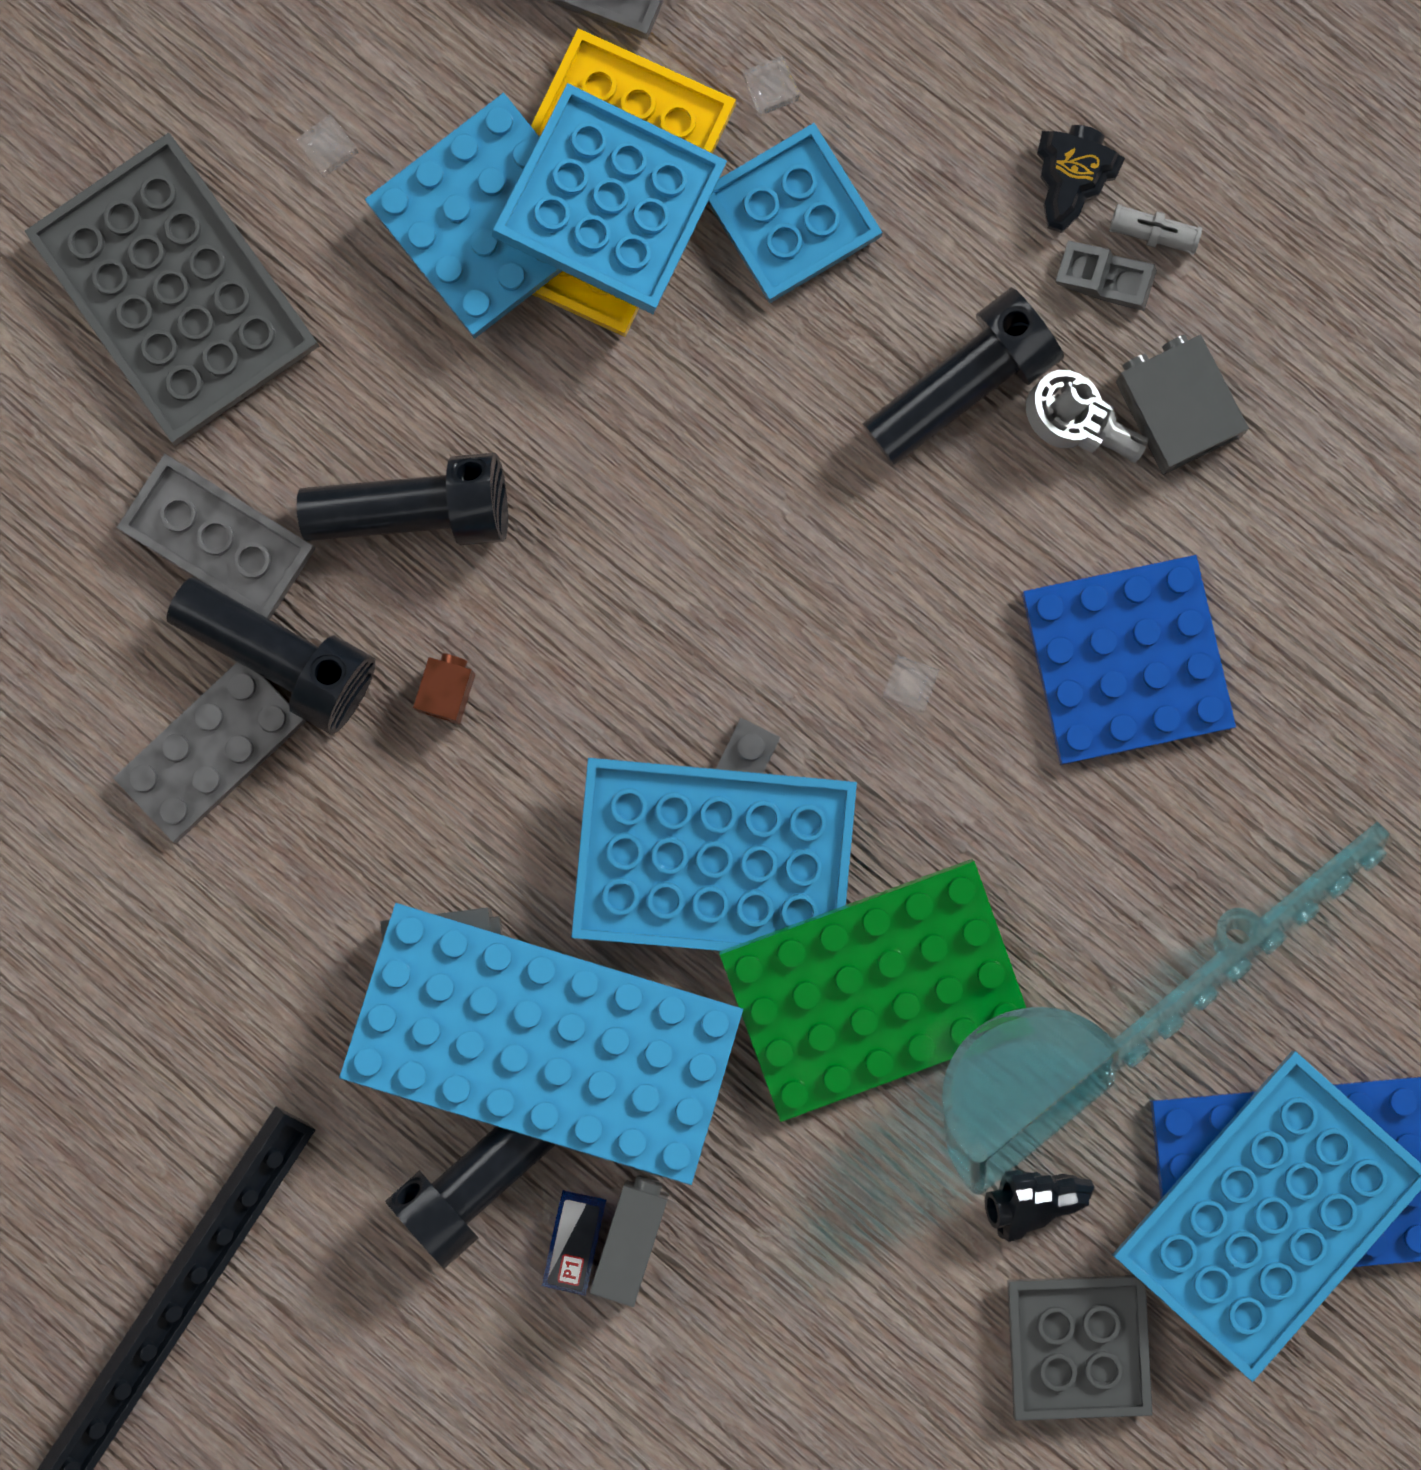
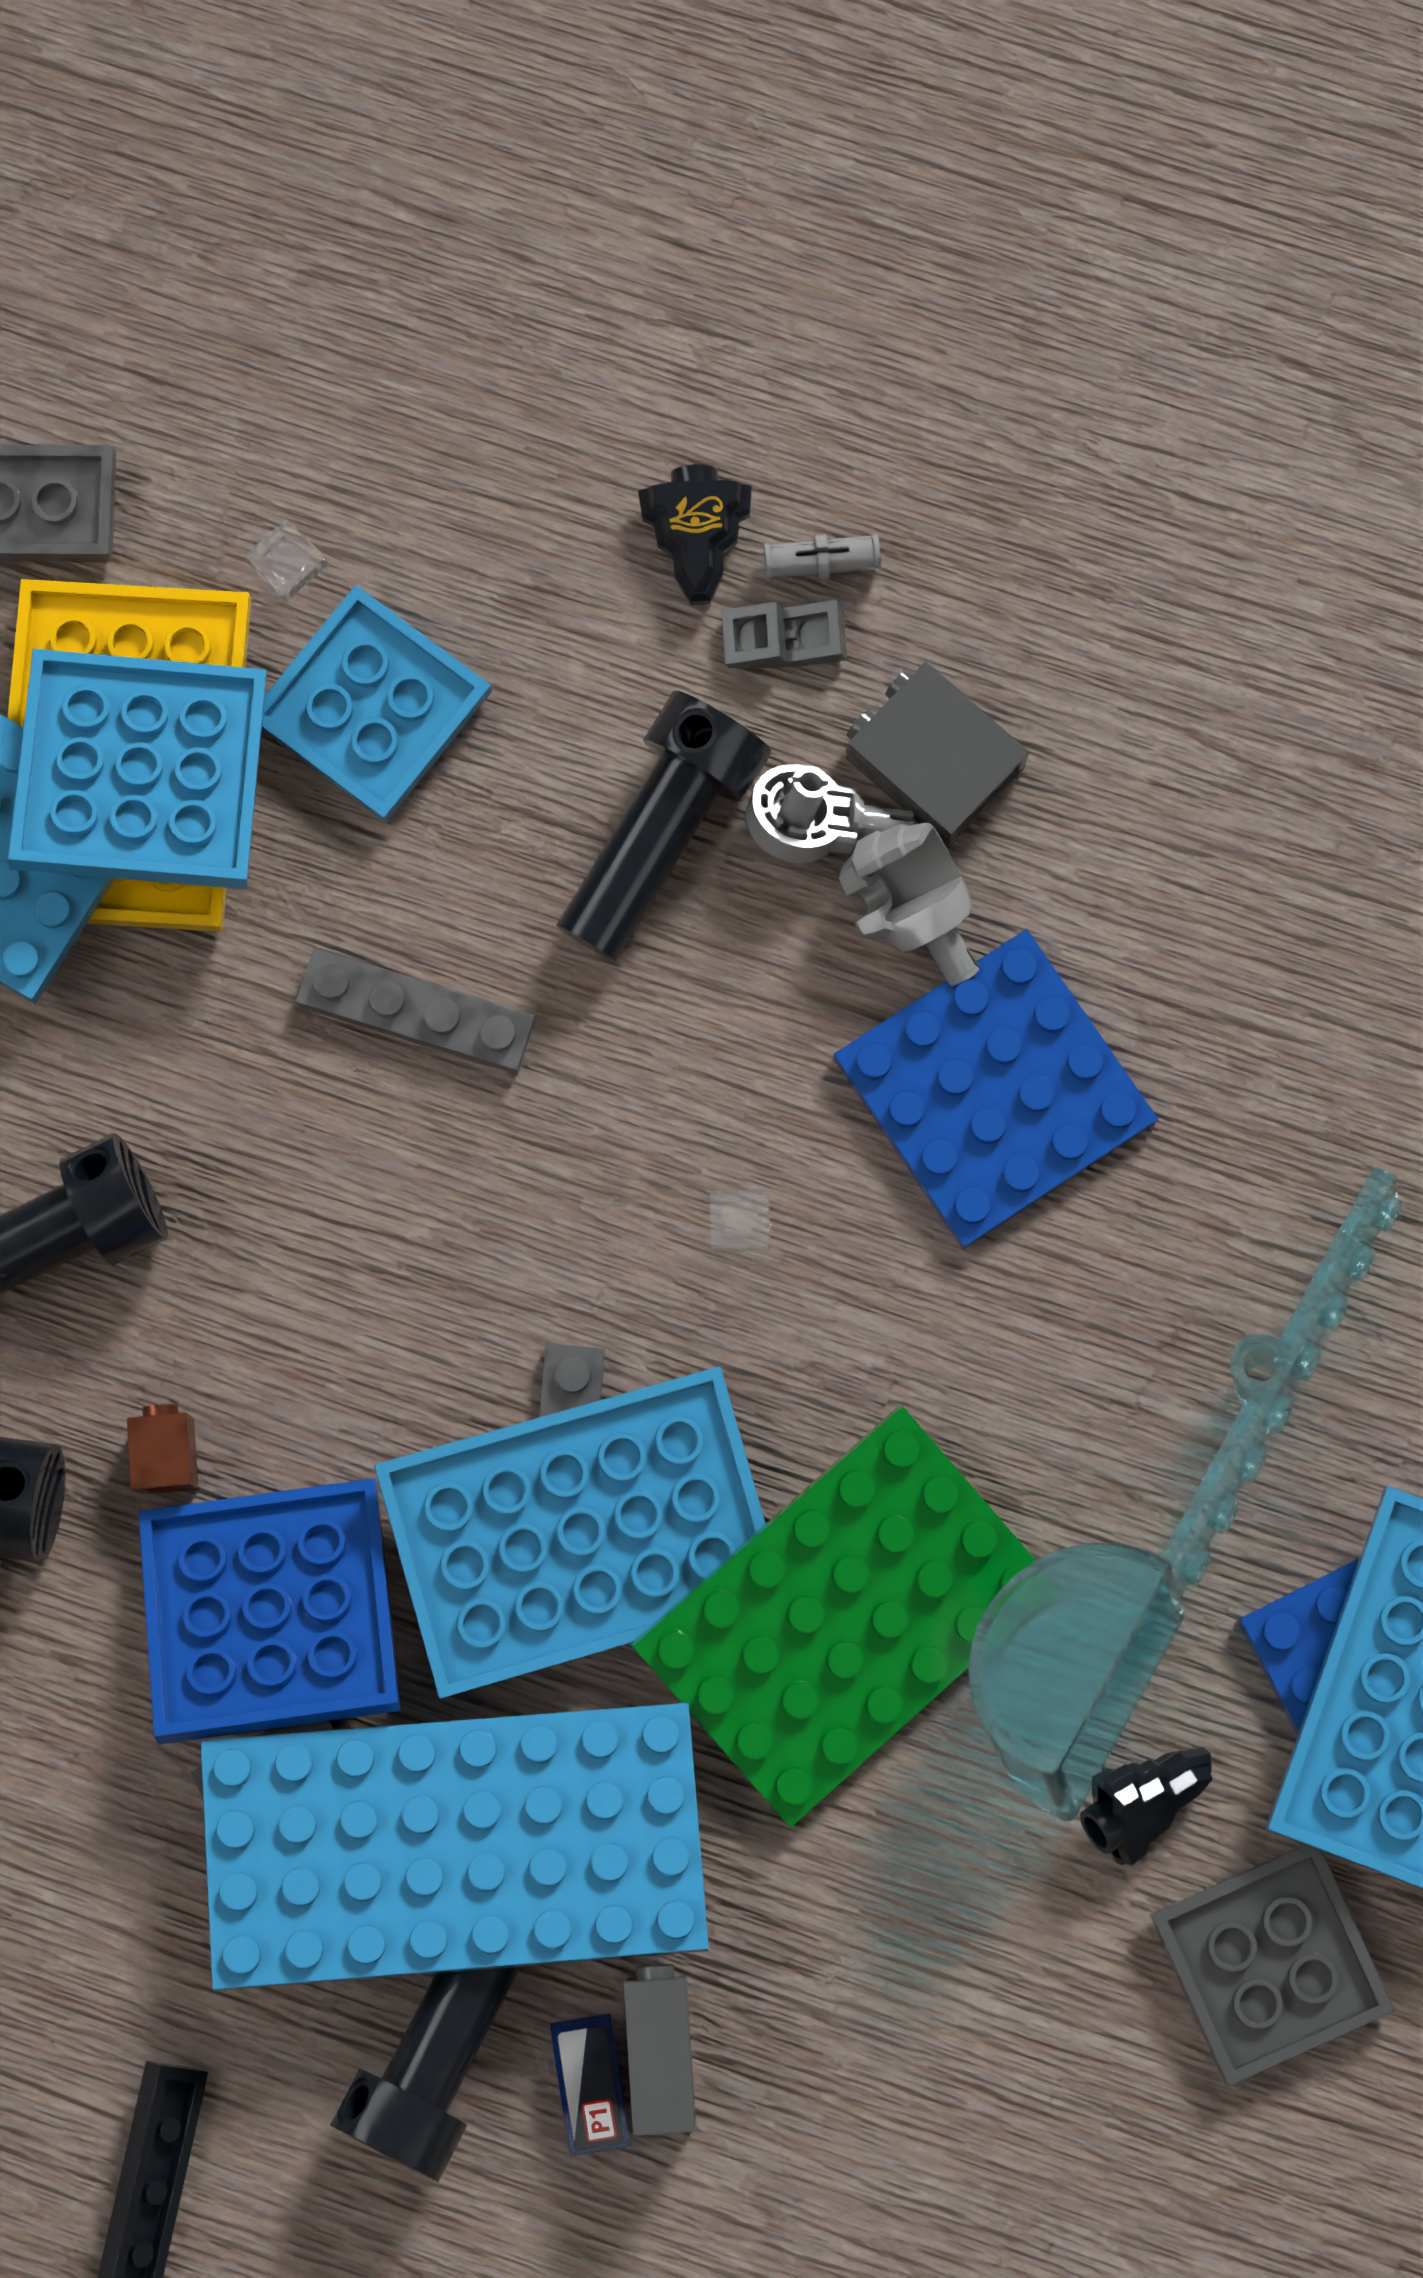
camera: 25 degrees left, 5 degrees down
(475, 830) = (267, 1611): none -> blue plate
(739, 446) = (415, 1011): none -> flat silver plate
(1124, 500) = (912, 895): none -> light grey piece

